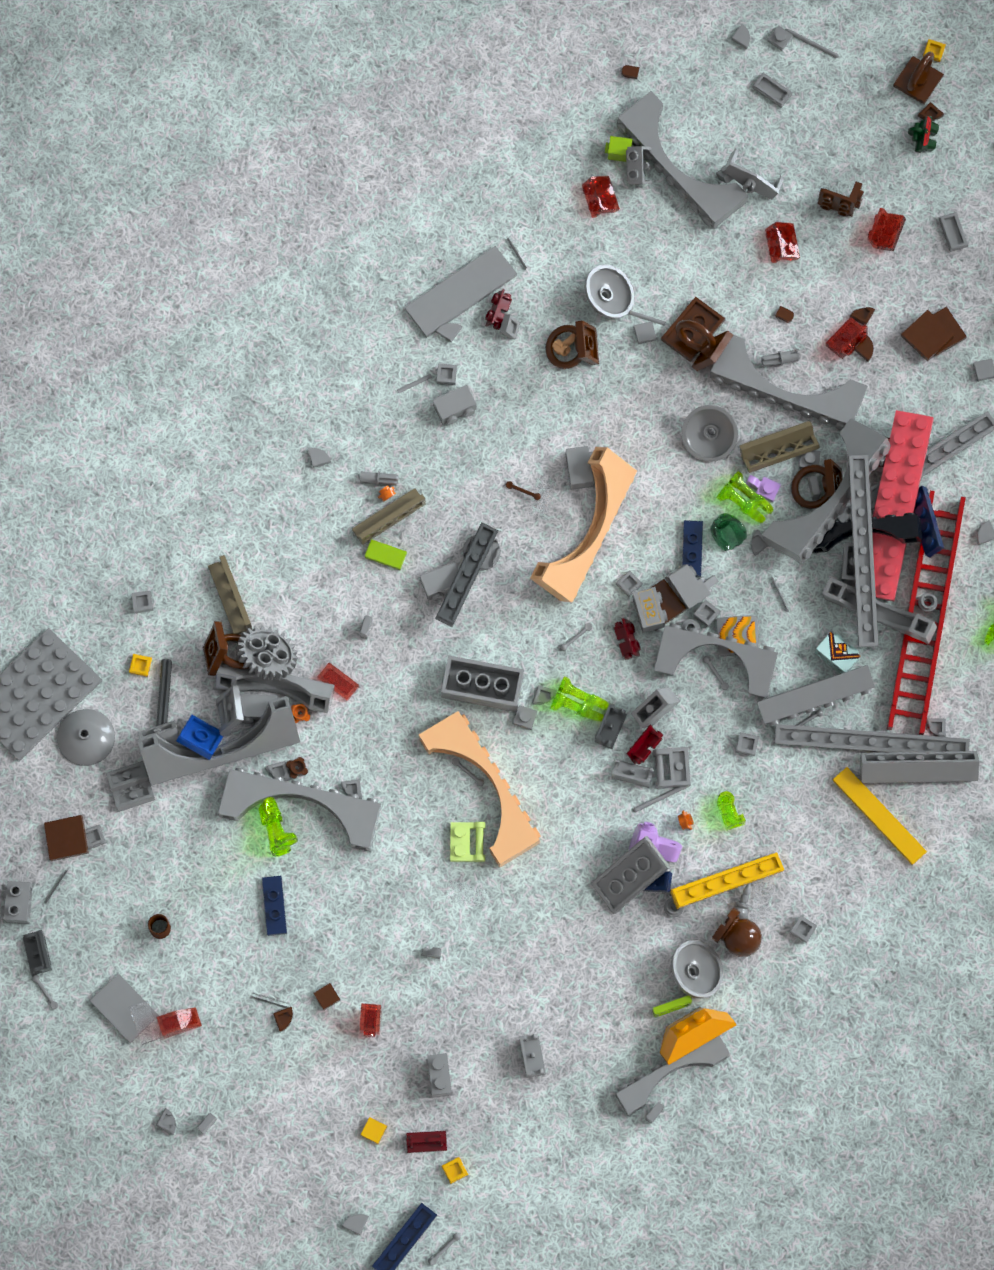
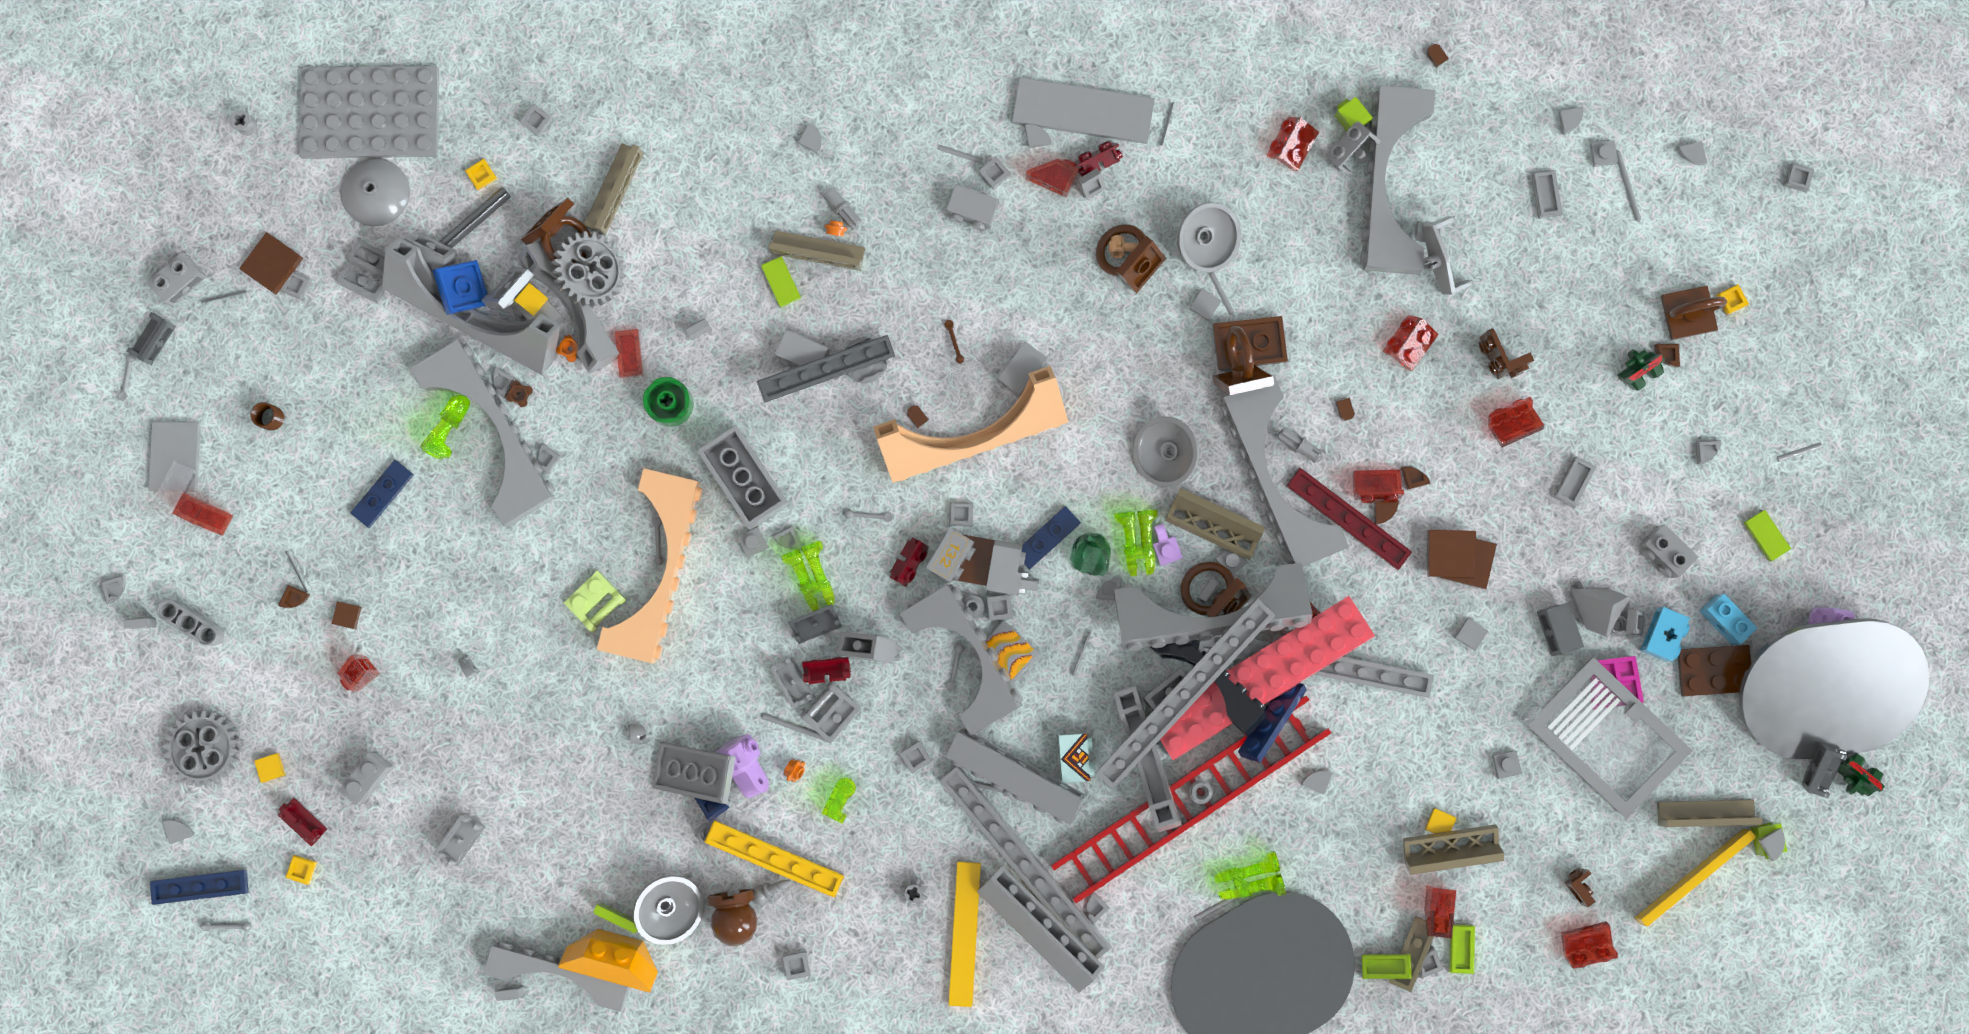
camera: 50 degrees right, 10 degrees up
(228, 1090) = (180, 621): none -> light grey beam
(251, 702) = (531, 299): none -> yellow tile
(311, 1173) = (223, 744): none -> light grey gear
(392, 673) = (659, 392): none -> green brick
(484, 342) = (1055, 176): none -> clear red slope
(545, 553) = (917, 416): none -> reddish brown piece
(573, 891) = (637, 734): none -> light grey hinge
(824, 825) = (907, 895): none -> light grey gear
(855, 371) = (1349, 519): none -> dark red tile

